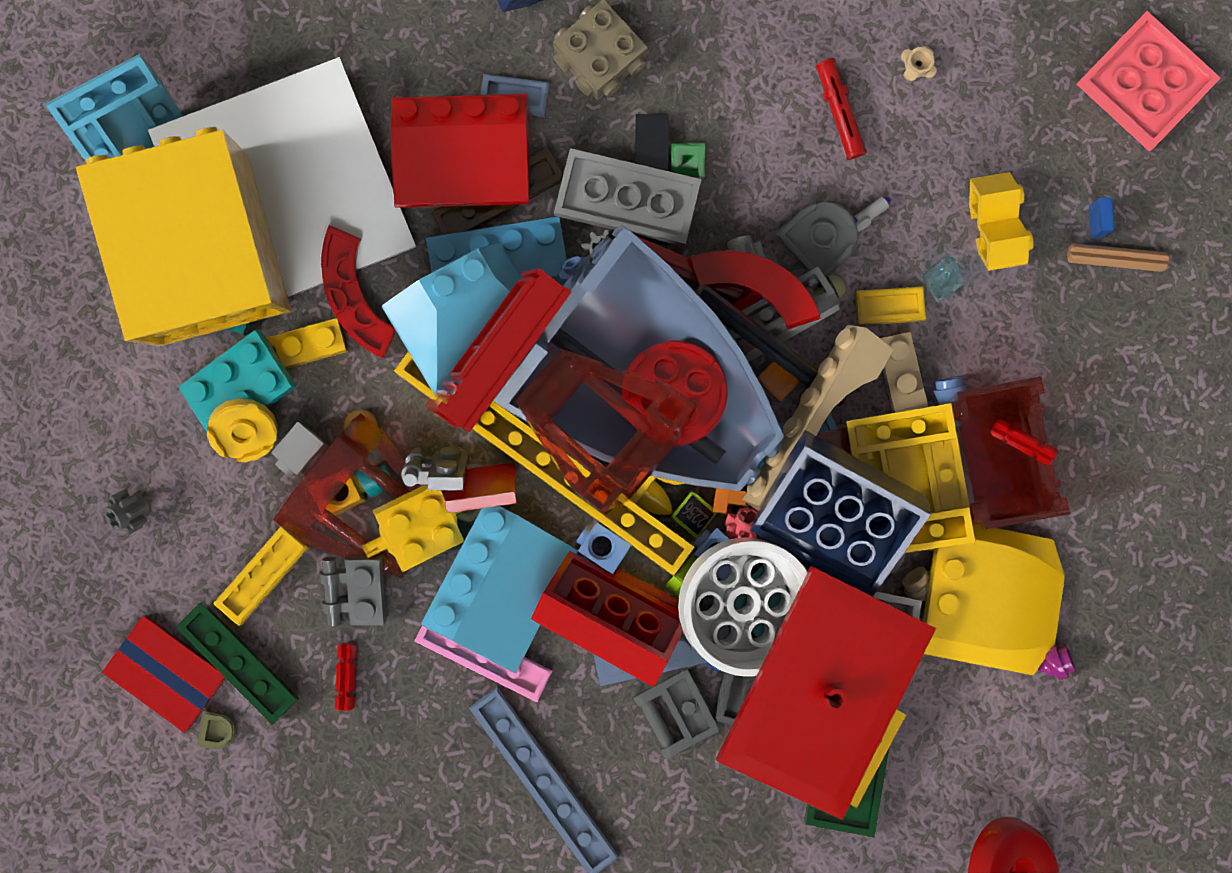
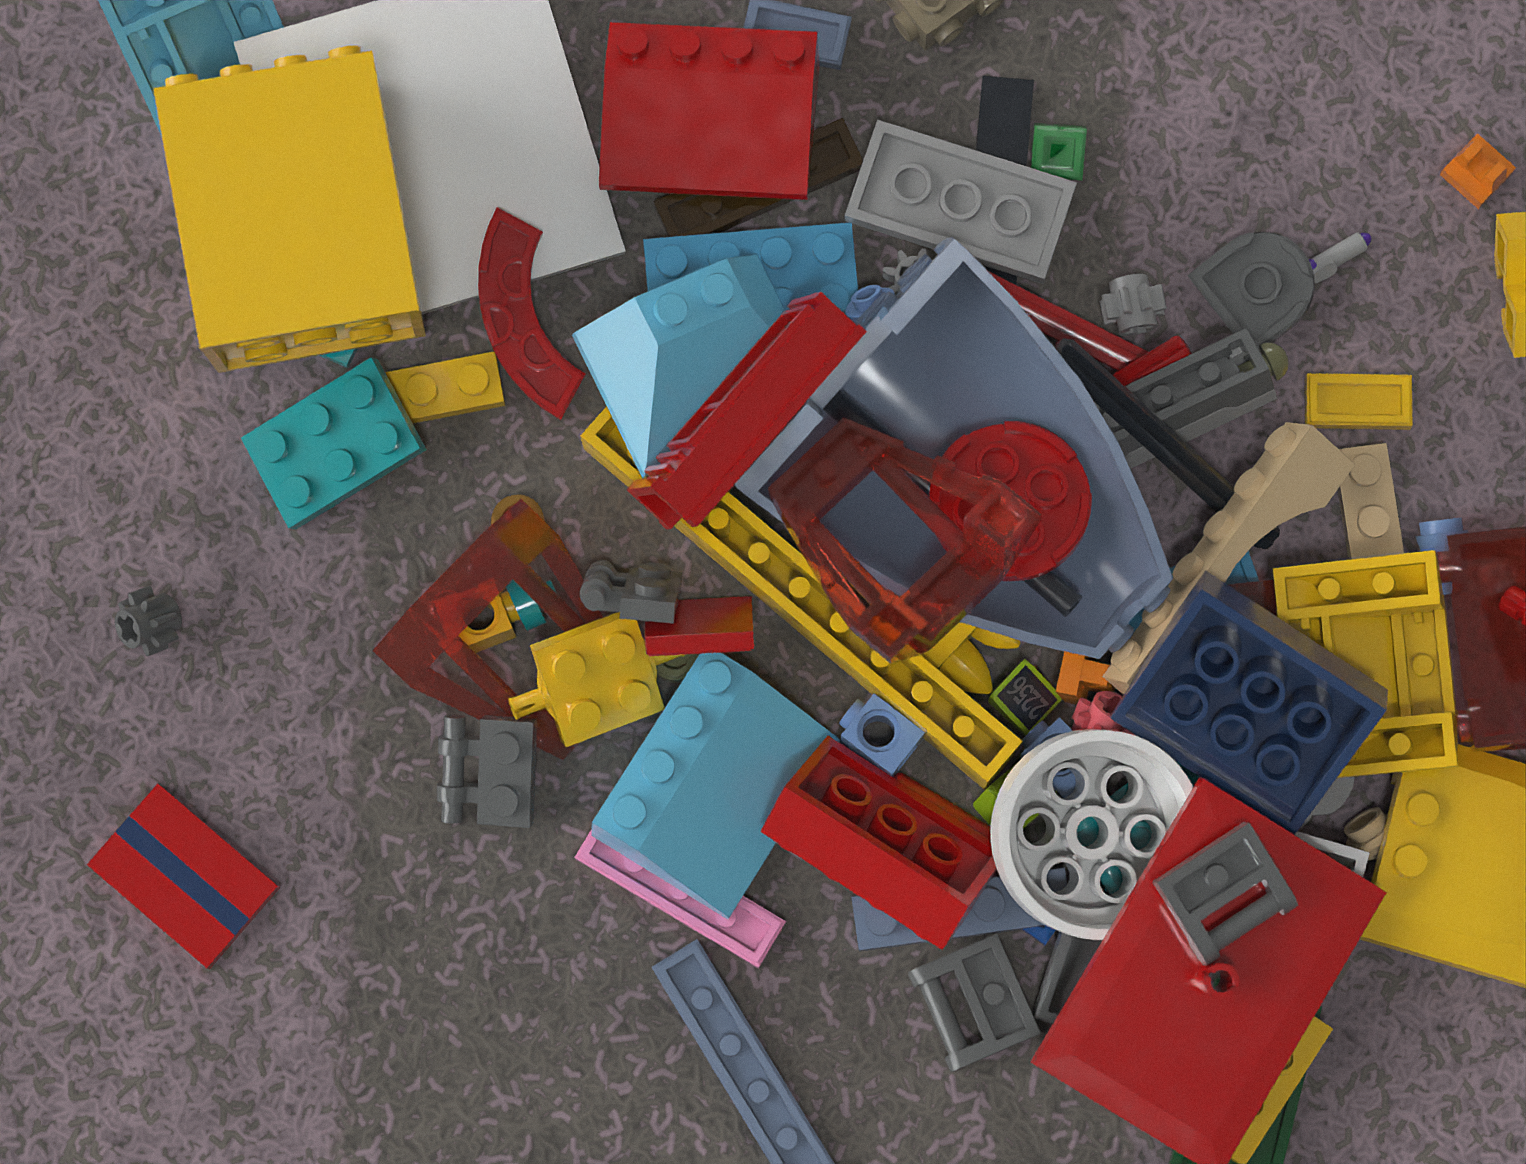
camera: 10 degrees right, 5 degrees down
(216, 730) = (256, 971): olive tile -> none
(237, 663) = (298, 868): dark green plate -> none
(242, 430) = (336, 509): yellow tile -> none
(260, 576) = (345, 736): yellow plate -> none
(299, 450) = (421, 549): light grey brick -> none
(345, 676) = (463, 903): red axle -> none
(759, 275) = (1159, 337): red tile -> none
(777, 381) = (1173, 503): orange tile -> none
(826, 634) = (1214, 879): none -> dark grey plate
(836, 96) = (1289, 35): red pin -> none
(920, 54) = (1437, 18): tan plate -> none
(943, 278) = (1443, 364): clear light blue plate -> none
(955, 151) = (1477, 171): none -> orange tile

